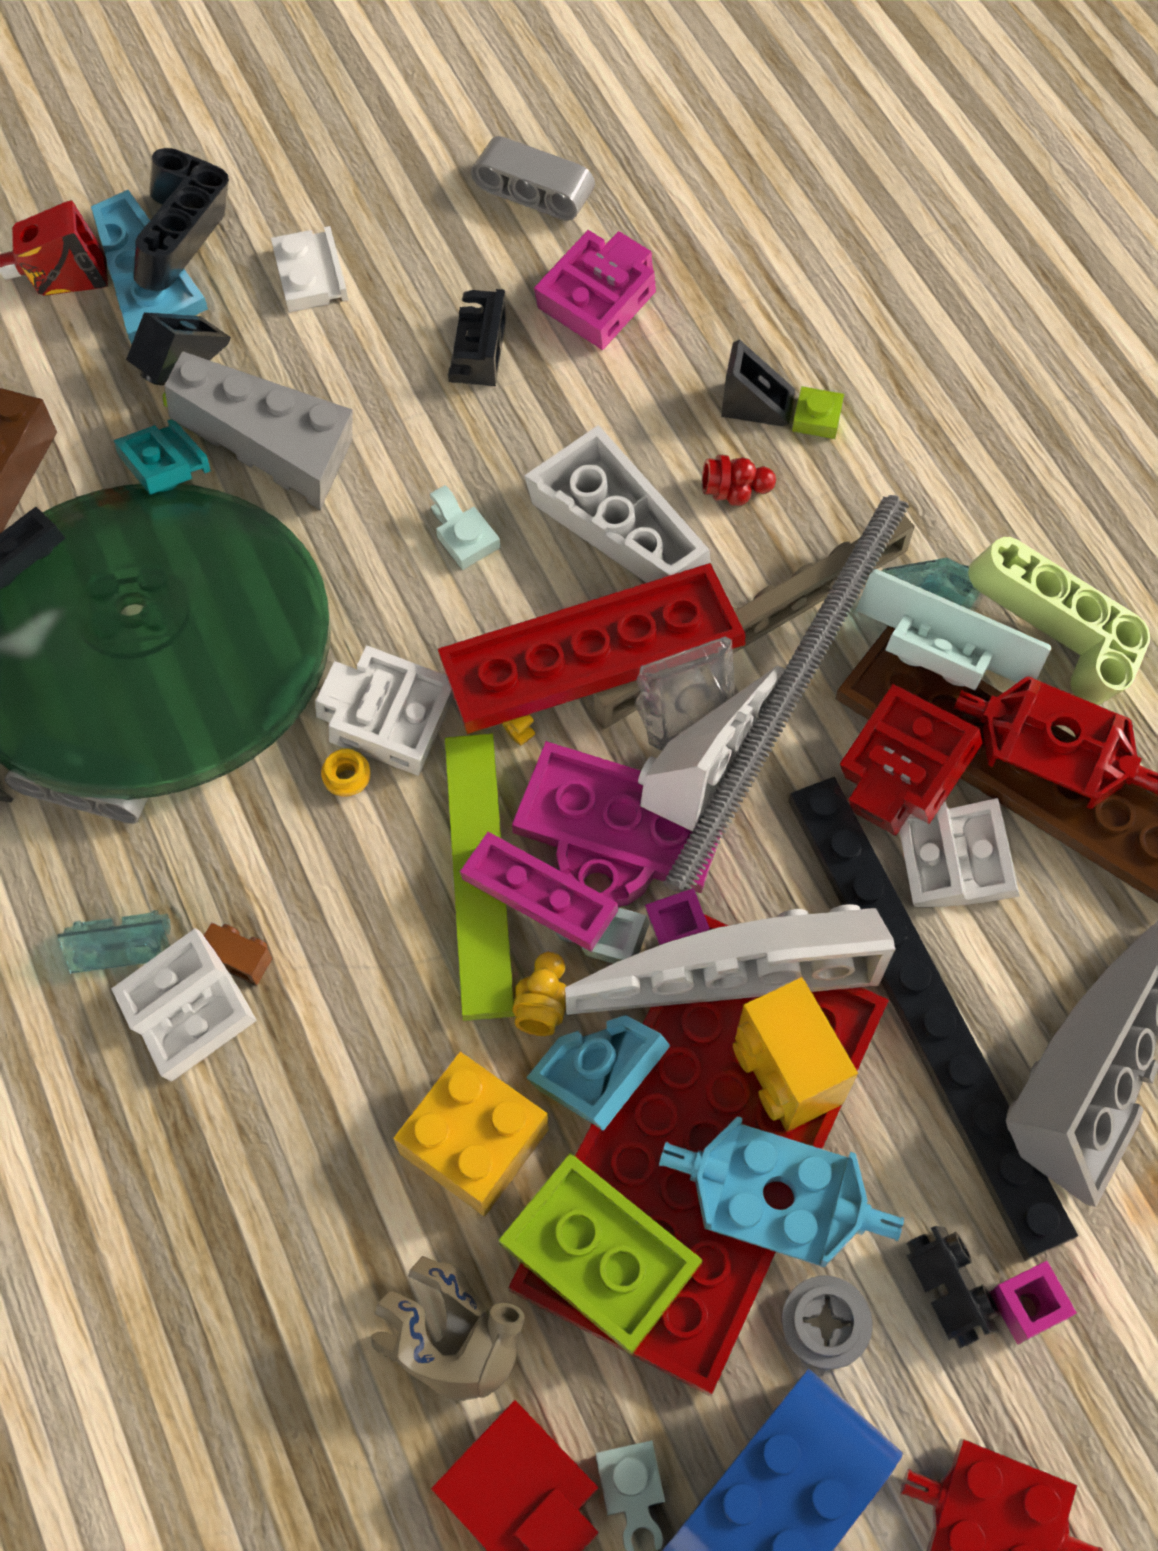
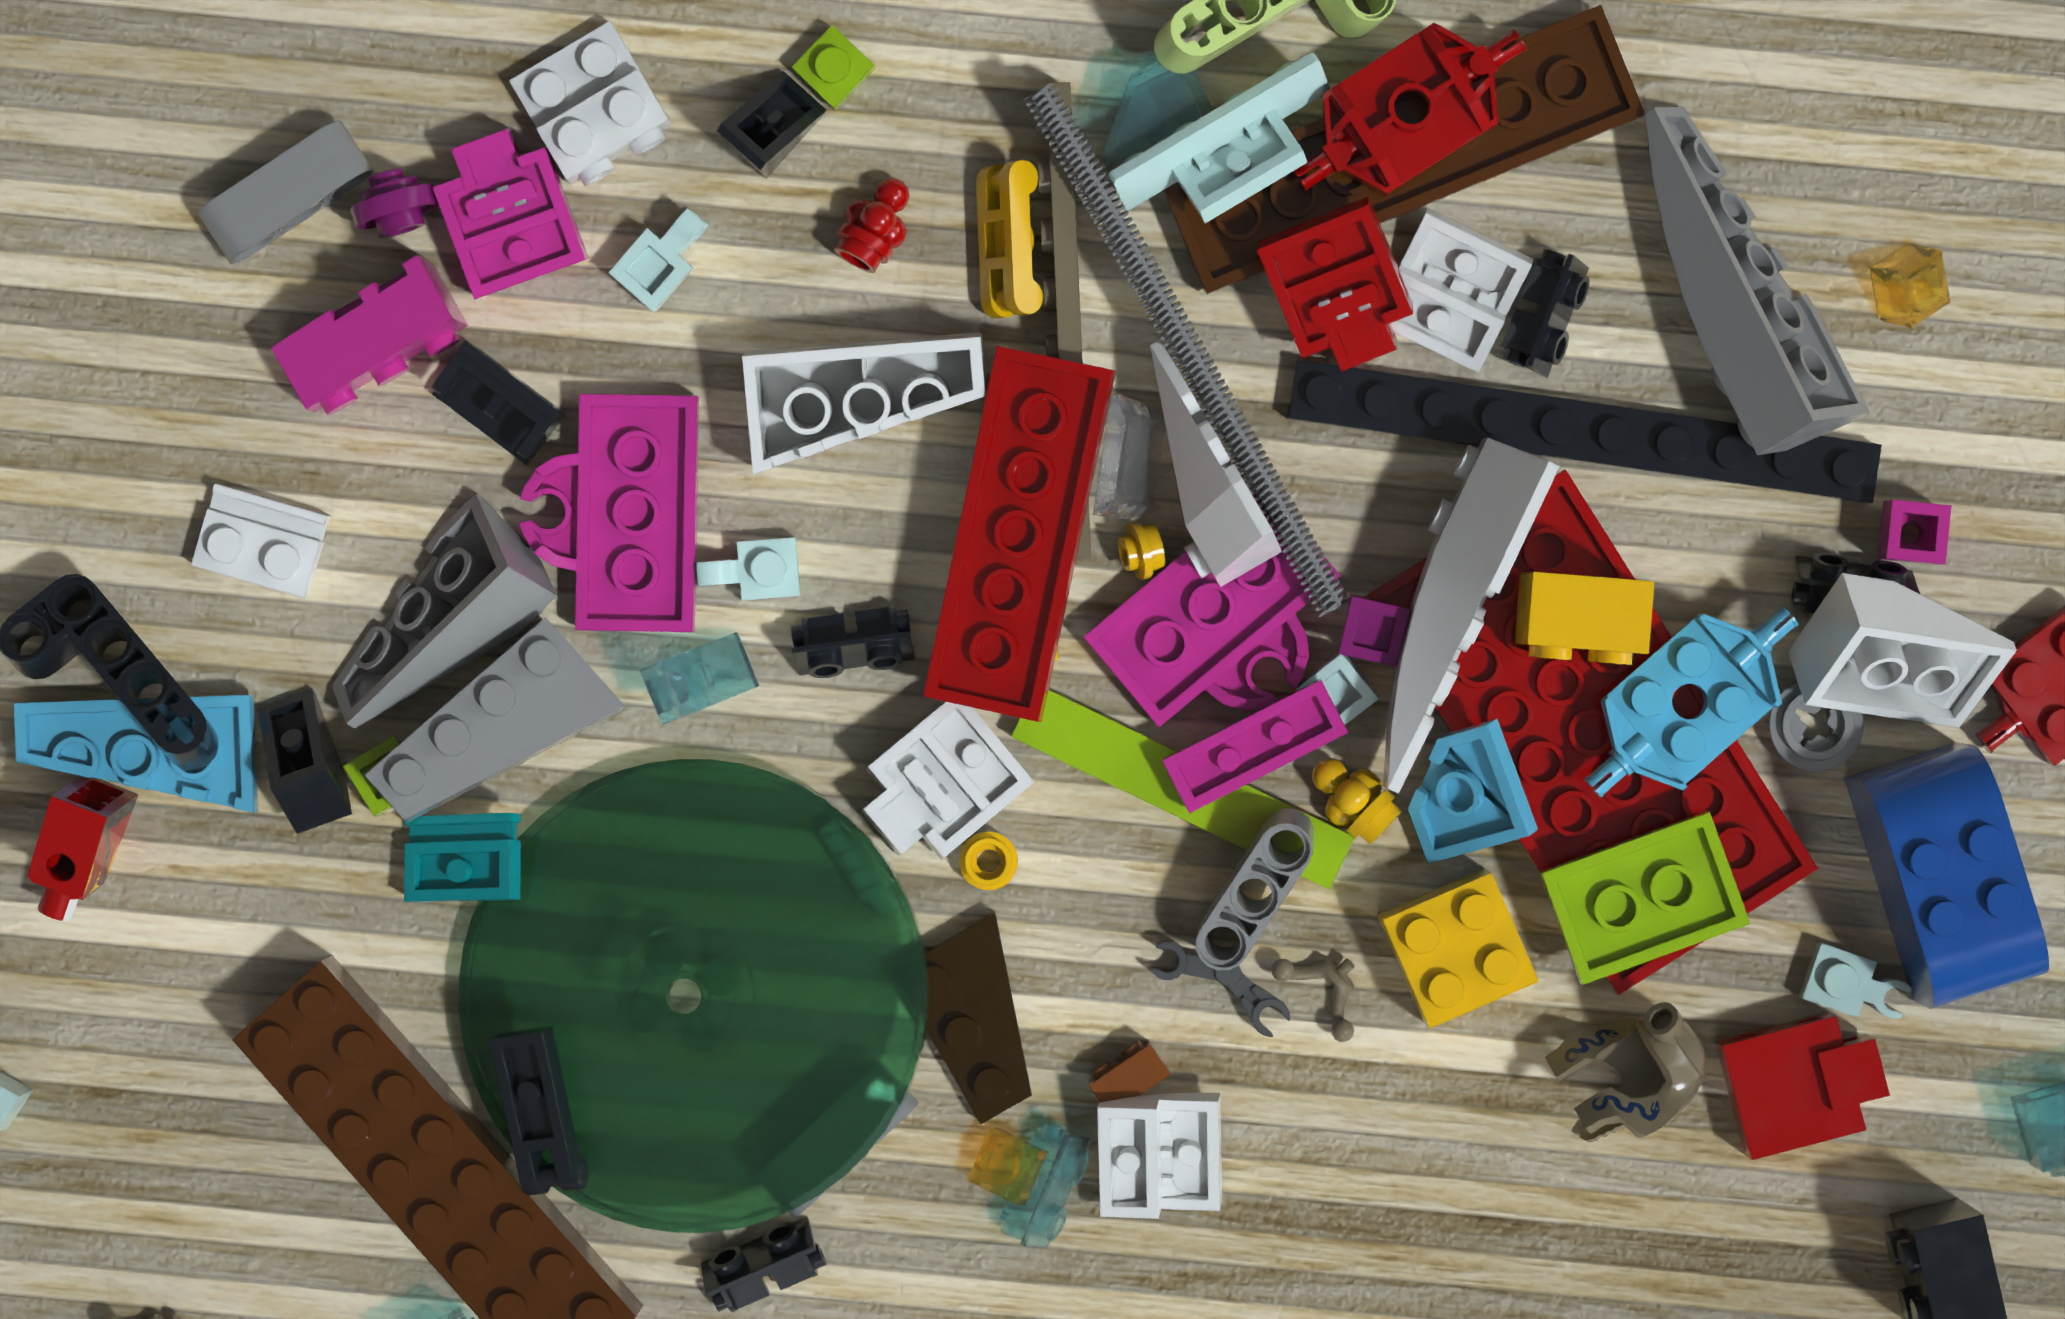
camera: 60 degrees left, 25 degrees up
(118, 902) = (1007, 1166): none -> clear yellow plate
(220, 825) = (976, 1019): none -> dark brown wing
(356, 381) = (463, 603): none -> light grey wedge
(356, 983) = (1251, 996): none -> dark grey piece
(365, 525) = (699, 678): none -> clear light blue slope
(400, 1053) = (1283, 970): none -> dark tan piece
(410, 941) = (1250, 916): none -> light grey beam
(439, 599) = (826, 649): none -> black hinge
(453, 438) = (626, 512): none -> dark pink plate
(478, 249) = (371, 337): none -> dark pink wedge
(561, 222) = (393, 204): none -> magenta plate
(625, 375) = (655, 264): none -> light aqua plate
(632, 747) = (1141, 549): none -> yellow plate
(697, 301) = (591, 105): none -> white plate
(783, 553) = (1006, 239): none -> yellow plate
(930, 1346) = (1895, 654): none -> white slope
(1007, 925) = (1544, 334): none -> black hinge

